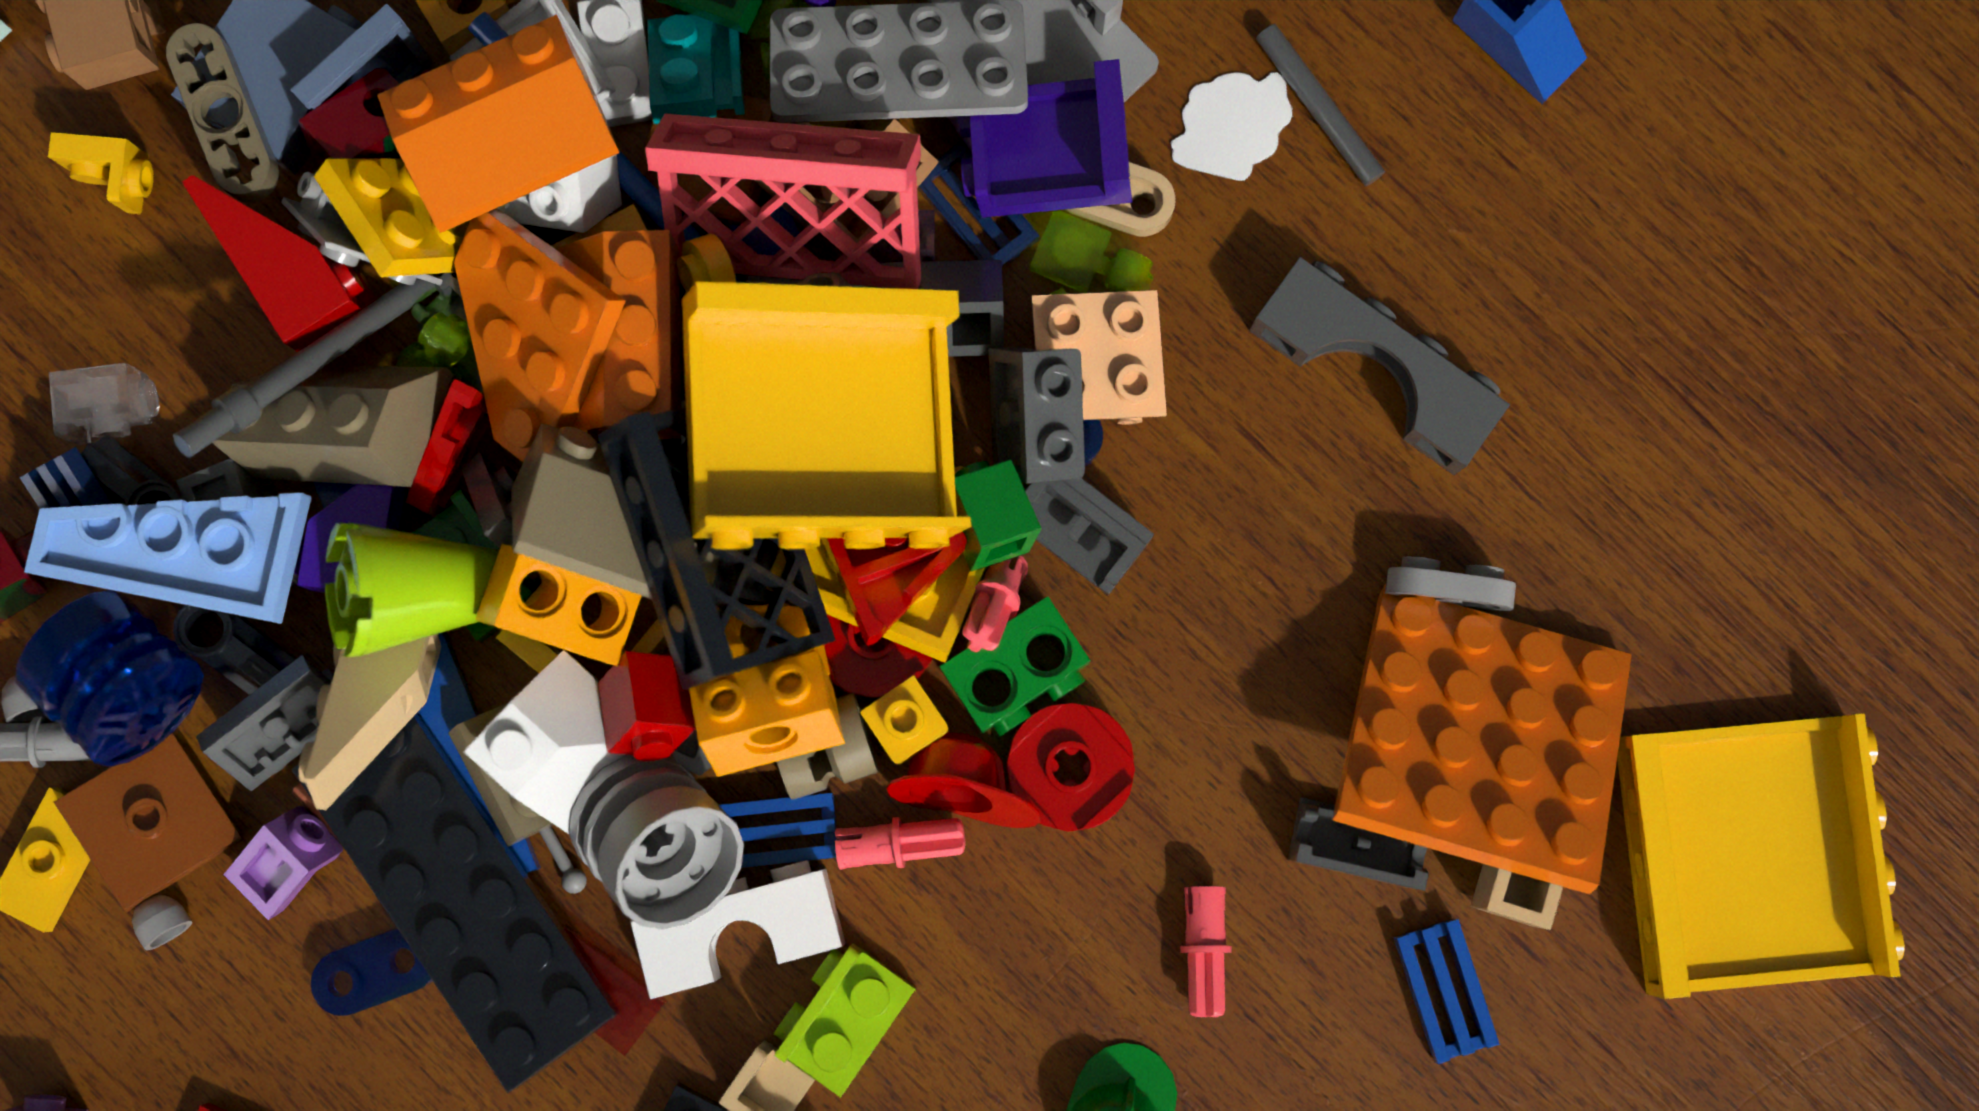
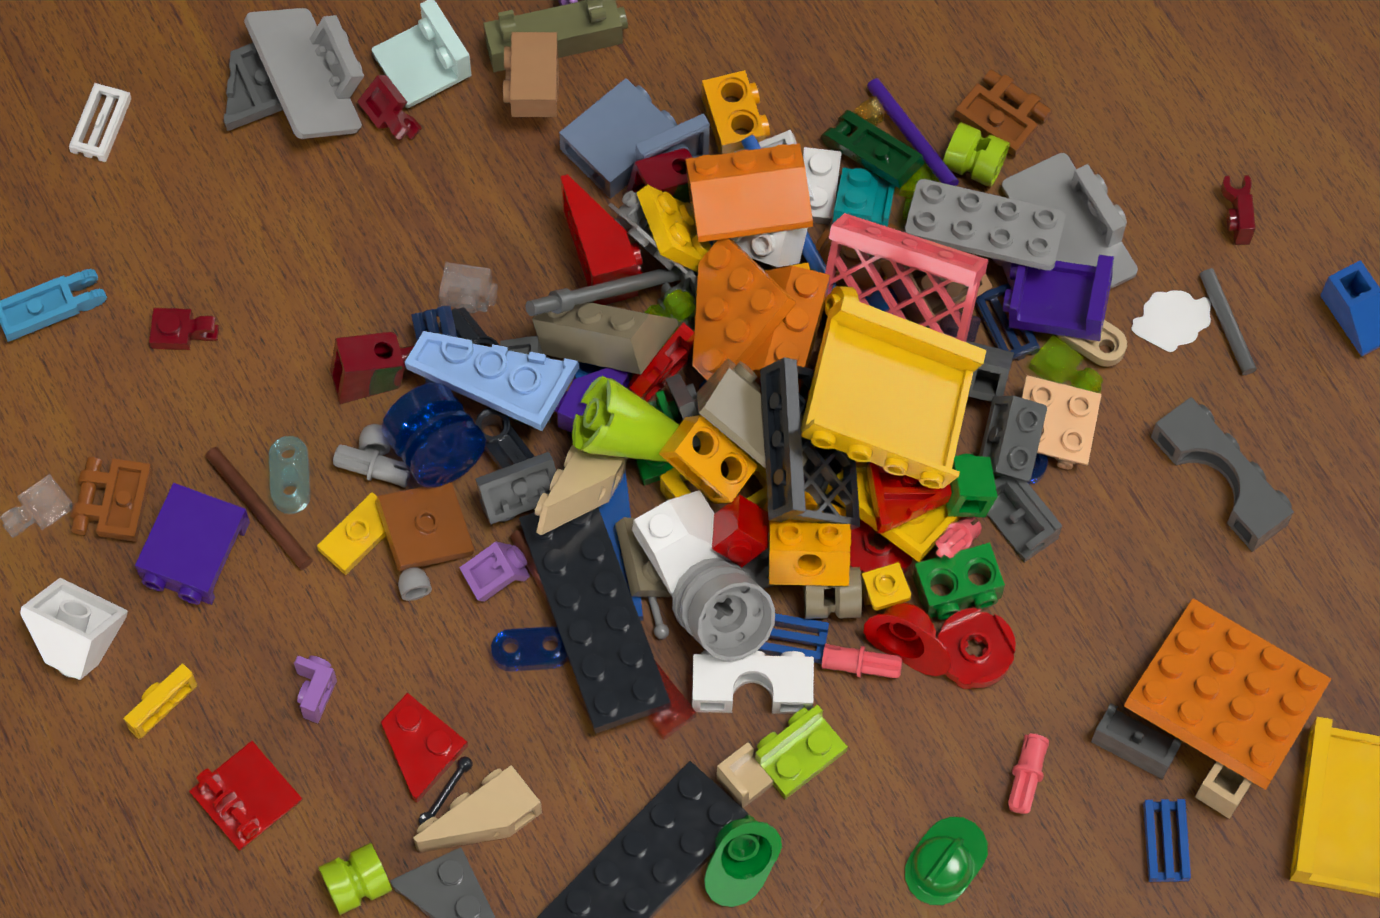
camera: 15 degrees right, 15 degrees down
(106, 162) = (507, 157): yellow bracket -> none
(200, 95) = (594, 134): dark tan beam -> none
(1478, 588) = (1245, 612): light grey plate -> none

